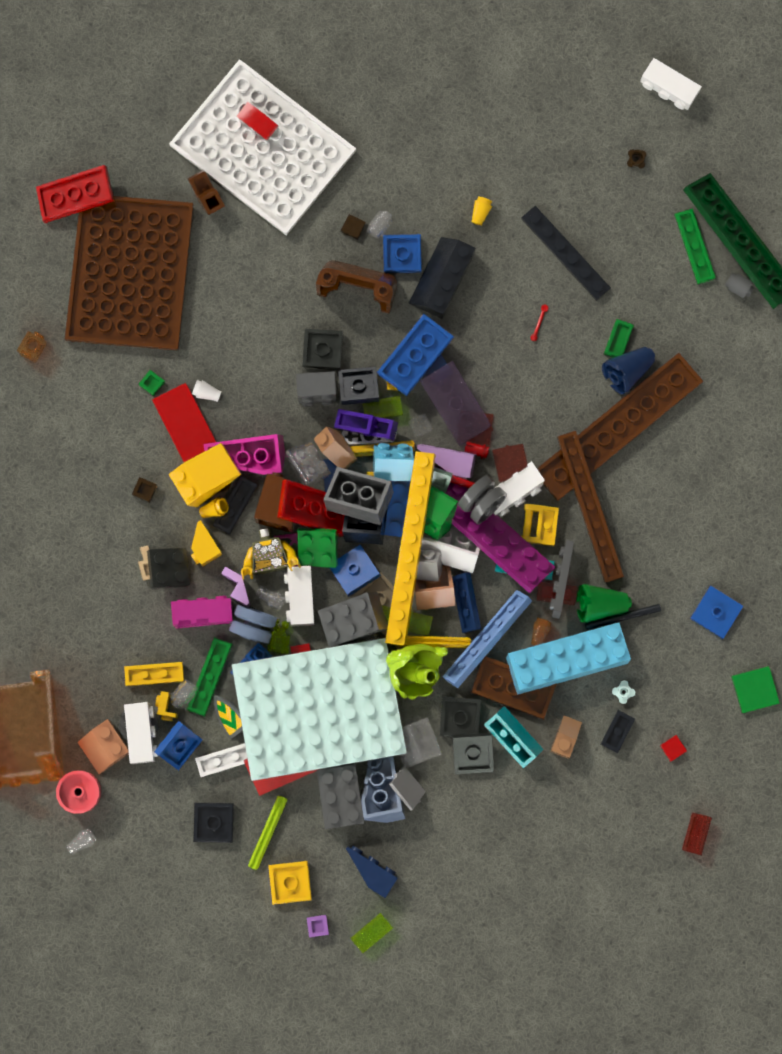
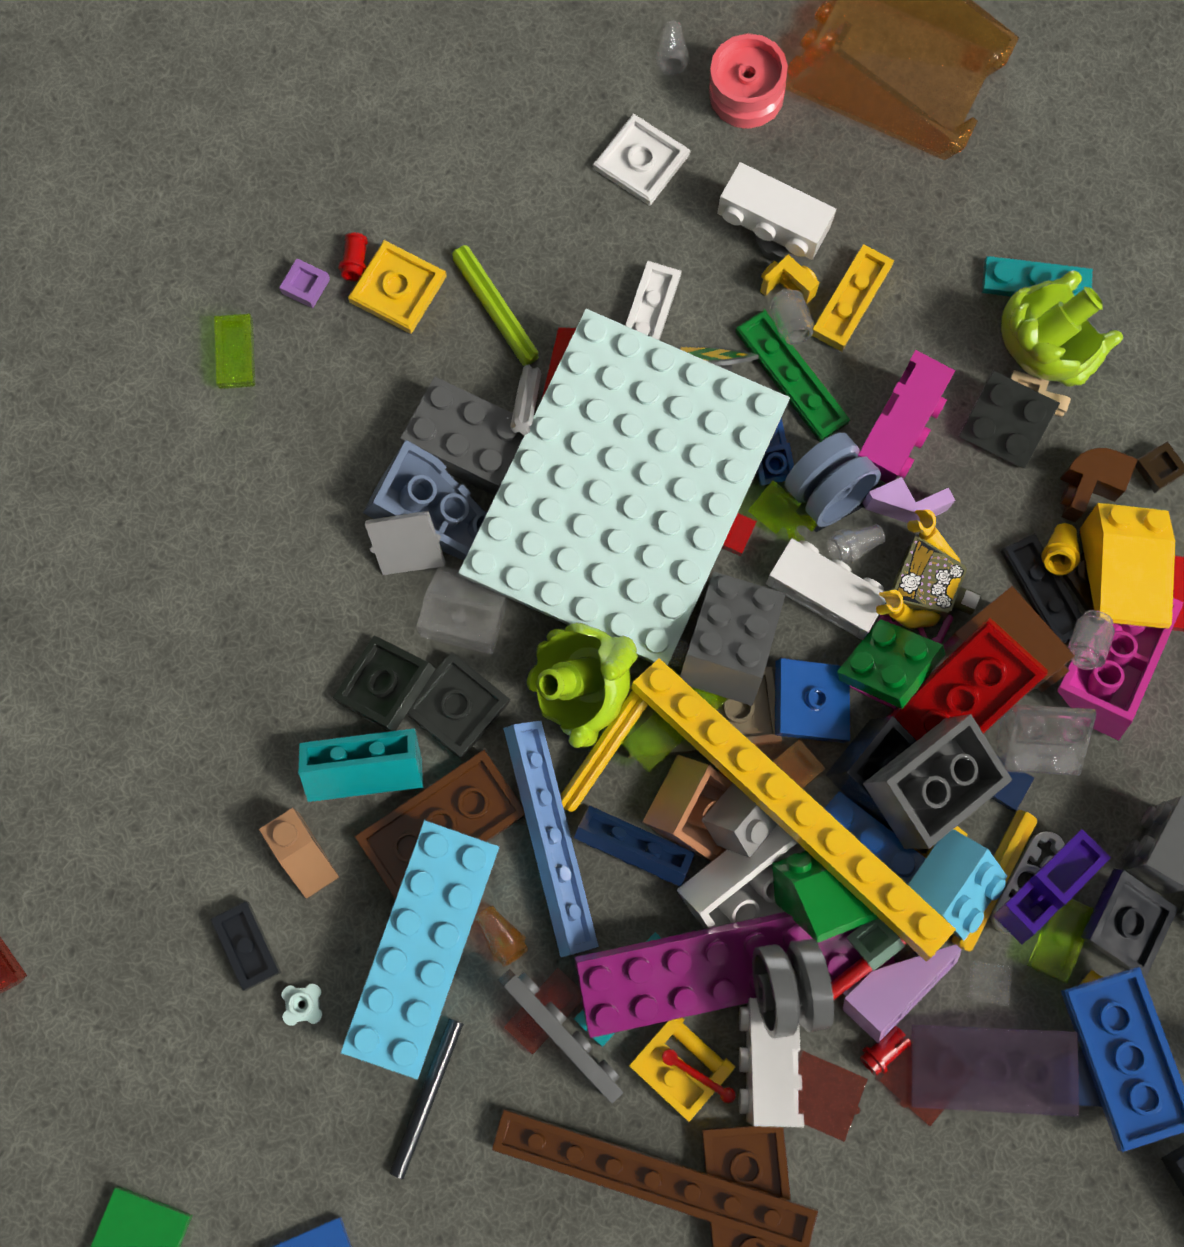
camera: 125 degrees right, 5 degrees down
(88, 598) = (1008, 275): none -> teal plate
(104, 746) = (795, 159): nougat slope -> none
(114, 573) = (1051, 334): none -> lime piece
(148, 817) = (641, 159): none -> white tile
(168, 517) = (1096, 472): none -> reddish brown brick
(178, 745) = (717, 254): blue plate -> none
(203, 546) = (1010, 496): yellow slope -> none
(213, 822) = (566, 239): black plate -> none
(253, 471) = (1091, 639): none -> clear brick
(289, 913) = (353, 256): none -> red pin
(307, 781) = (526, 400): none -> light grey axle
(335, 447) = (1045, 806): medium nougat slope -> none
(375, 877) = (315, 408): dark blue slope -> none
(389, 558) = (799, 764): none -> clear orange brick
(540, 530) = (671, 1058): none -> red hinge
(600, 602) = (474, 1074): green cone -> none
(673, 748) = (150, 1021): red tile -> none

